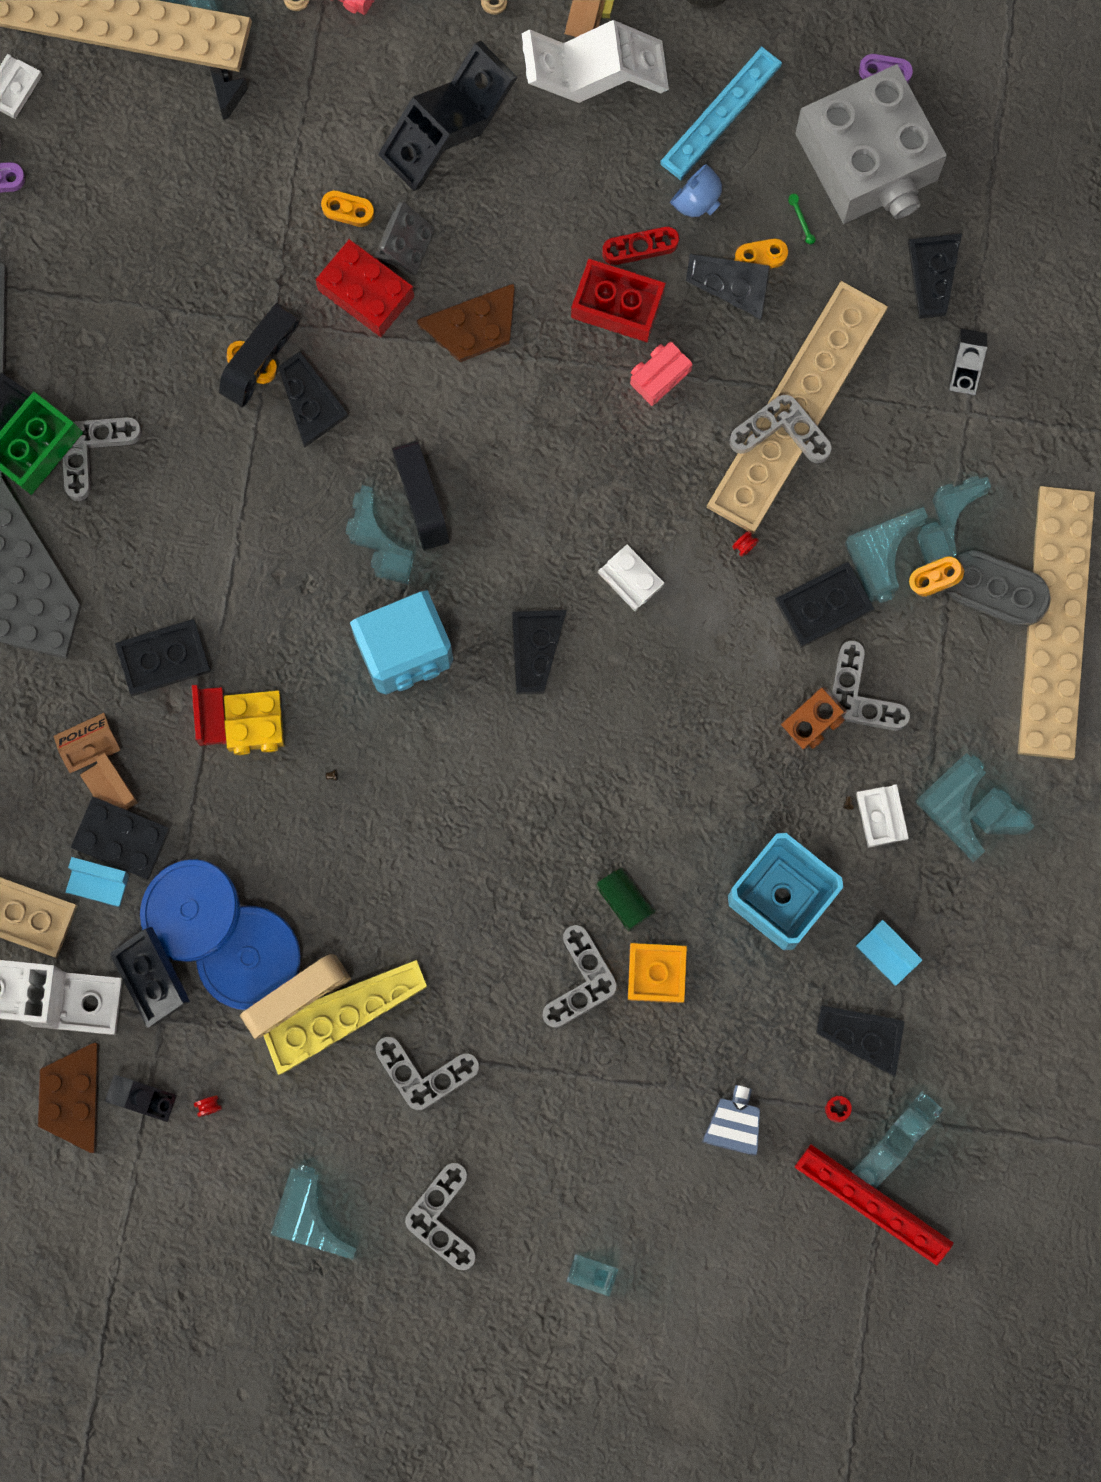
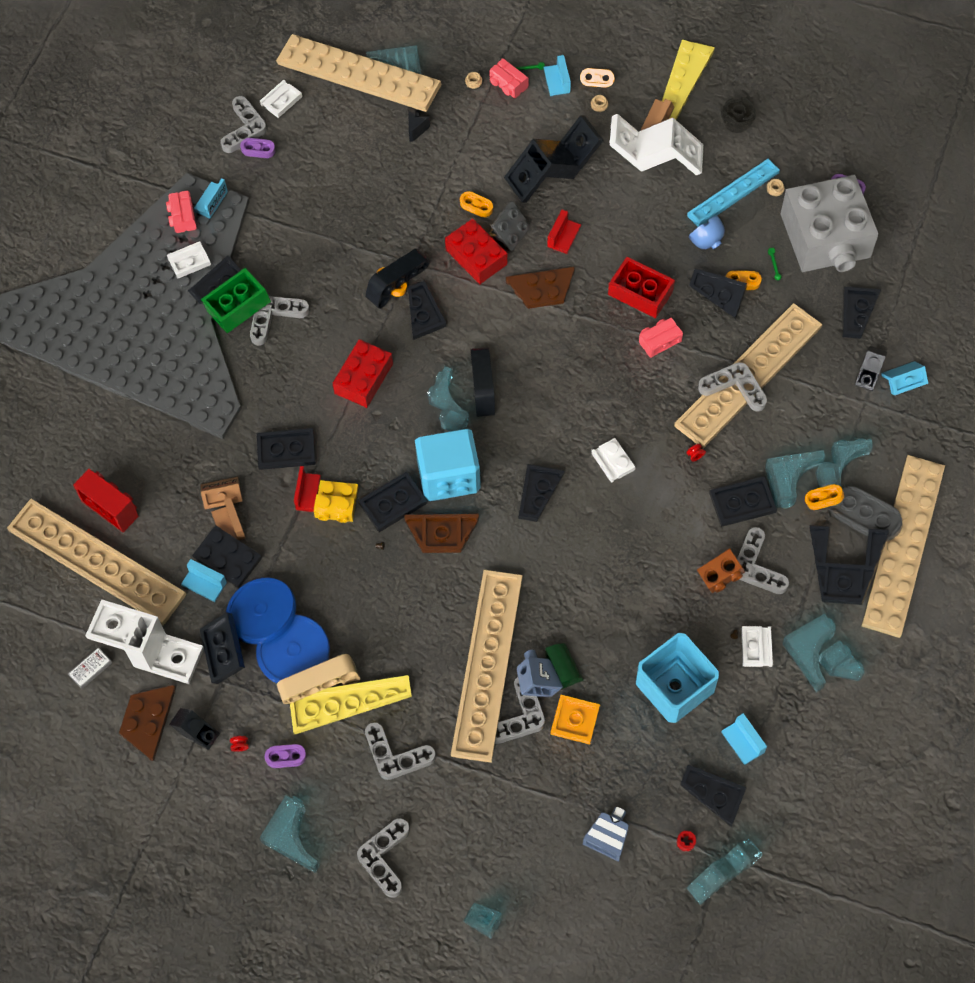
camera: 15 degrees right, 15 degrees down
(245, 518) = (362, 373): none -> red brick
(275, 1108) = (285, 755): none -> medium lavender plate
(334, 707) = (392, 502): none -> black plate
(413, 738) = (441, 531): none -> reddish brown wing
(486, 231) = (563, 233): none -> red panel
(521, 922) = (487, 666): none -> tan plate
(593, 925) = (537, 676): none -> sand blue torso
(661, 248) = (649, 255): red beam -> none
(781, 86) = (775, 183): none -> tan plate
(874, 1205) = (699, 913): red tile -> none
(984, 697) = (846, 581): none -> black wing
(1018, 365) = (906, 377): none -> medium azure panel

